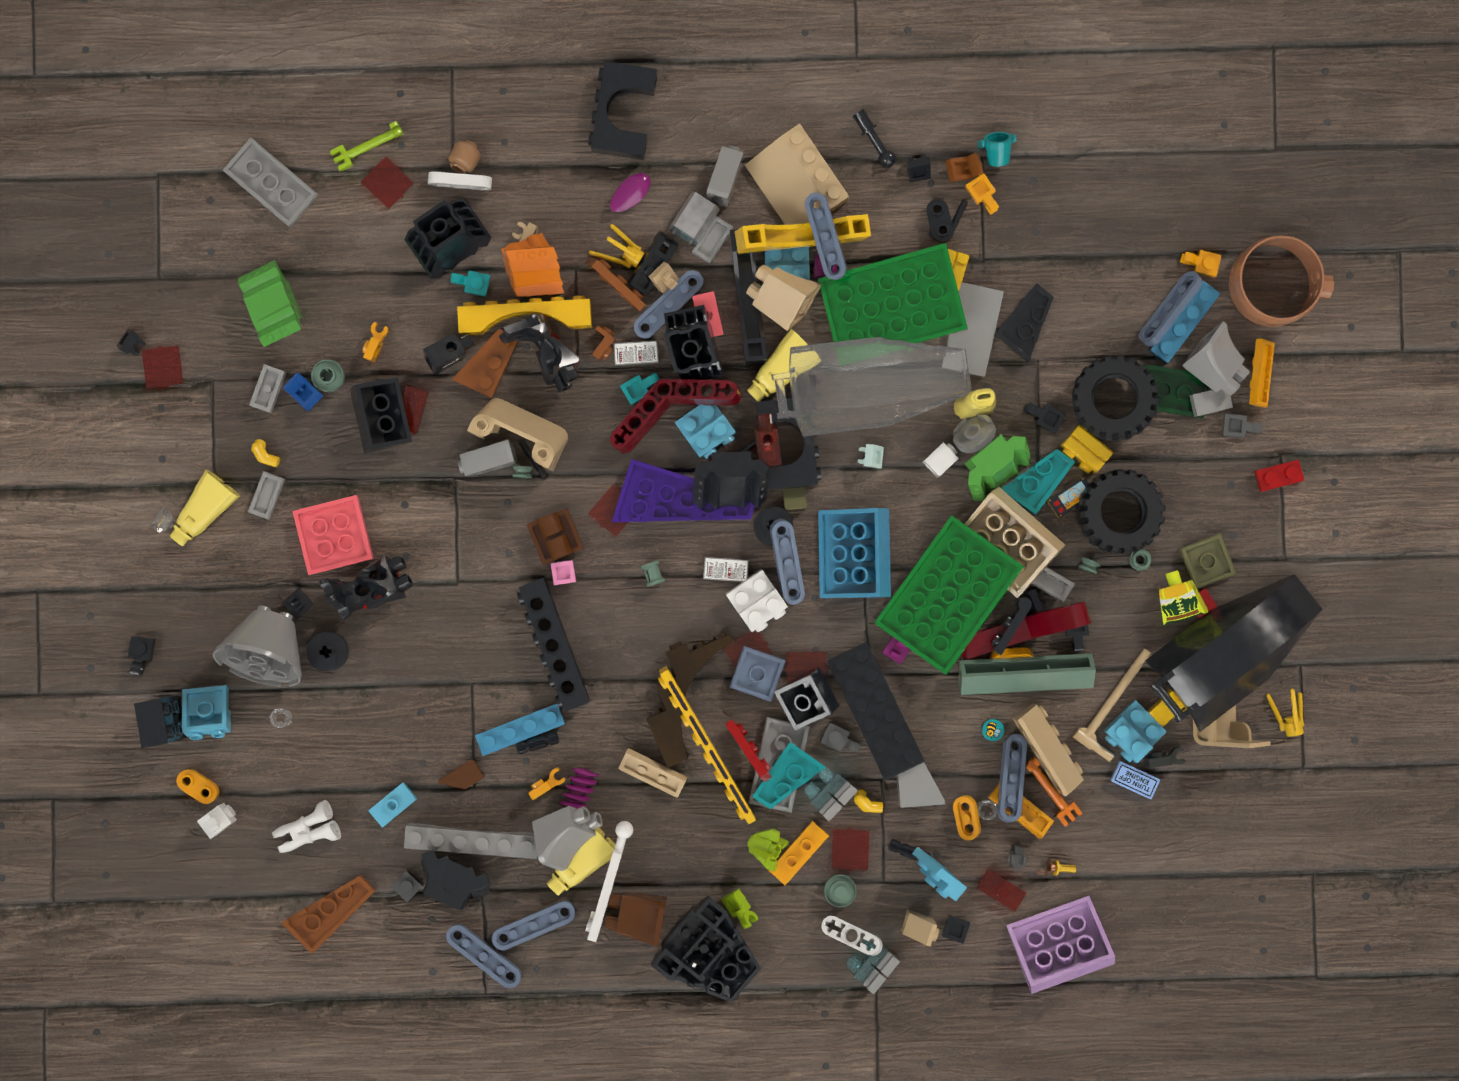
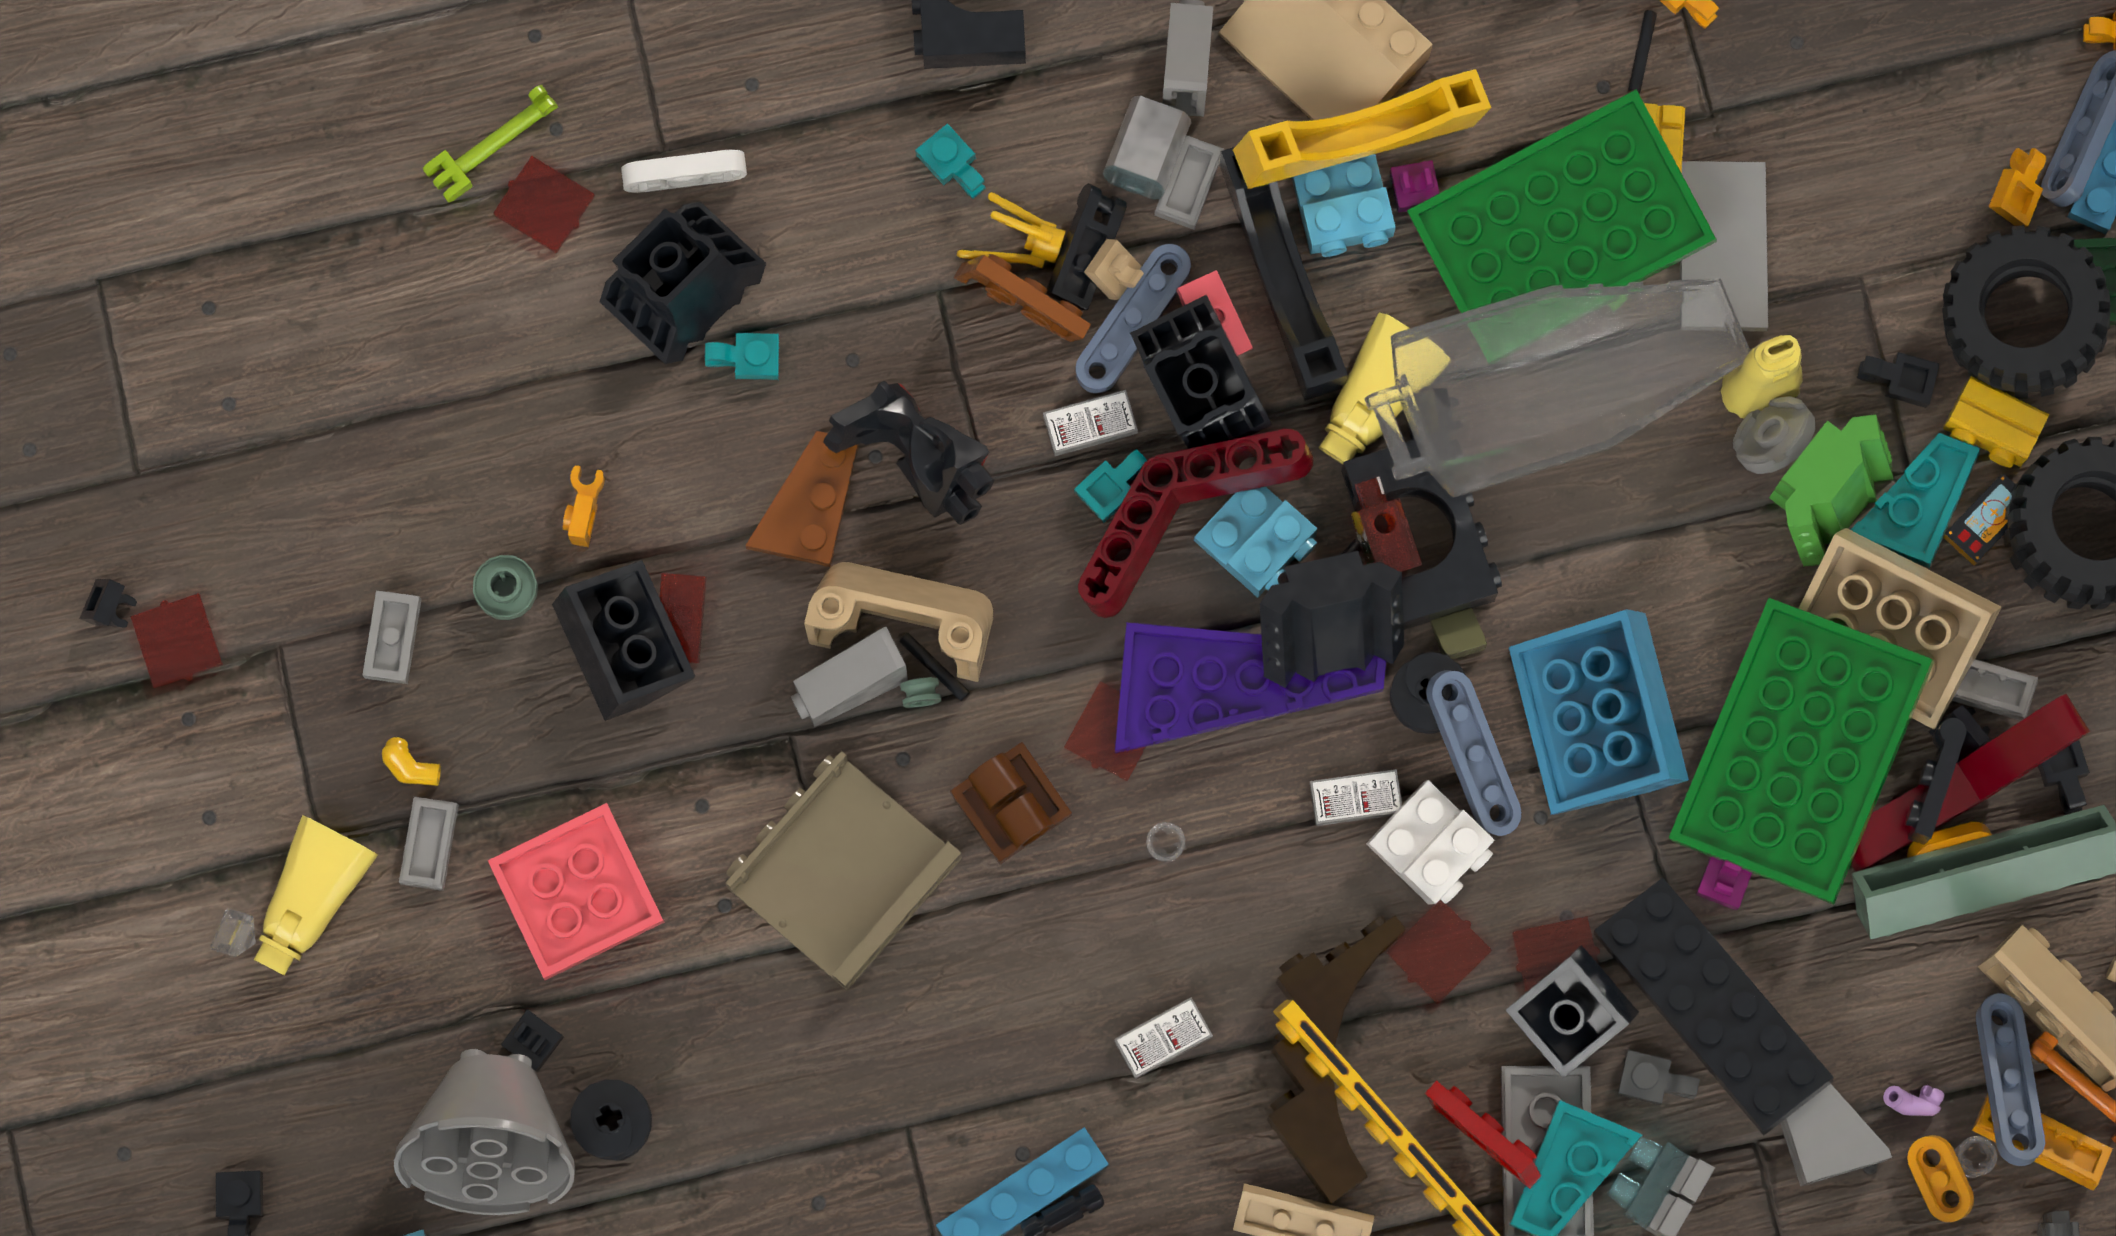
camera: 10 degrees left, 10 degrees down
(270, 182) = (320, 249): light grey tile -> none
(270, 303) = (367, 471): bright green slope -> none
(303, 391) = (462, 627): blue bracket -> none
(381, 589) = (692, 973): black hips -> none
(440, 358) = (726, 495): black torso -> none
(464, 157) = (683, 124): medium nougat head -> none
(466, 551) = (841, 870): none -> dark tan panel
(478, 319) = (776, 418): yellow arch -> none
(527, 231) = (836, 243): tan tile -> none
(532, 267) = (861, 298): orange slope -> none
(563, 572) = (1041, 869): bright pink plate -> none
(579, 695) = (1003, 911): black brick -> none
(595, 202) = (950, 158): none -> teal plate
(604, 348) = (1028, 426): dark orange bracket -> none
(605, 667) = (1163, 1038): none -> tile
(623, 577) = (1169, 829): none -> clear bush
(630, 192) = (1014, 125): magenta arm -> none
(652, 573) = (1216, 833): sand green bush -> none
(757, 673) = (1463, 985): sand blue tile -> none
(782, 295) = (1349, 251): tan hips -> none
(825, 236) = (1407, 123): sand blue plate -> none
(865, 804) = (1735, 1196): yellow arm -> none
(873, 456) = (1591, 520): light aqua tile -> none
(940, 220) = (1612, 56): black plate -> none
(941, 459) = (1722, 499): white brick -> none
(961, 778) = (1907, 1104): none -> lavender arm
(992, 729) = (1948, 997): tile -> none
(1025, 322) = (1821, 211): black wing -> none
(1089, 565) = (2056, 640): sand green bush -> none
(1127, 332) = (2016, 190): none -> light orange plate

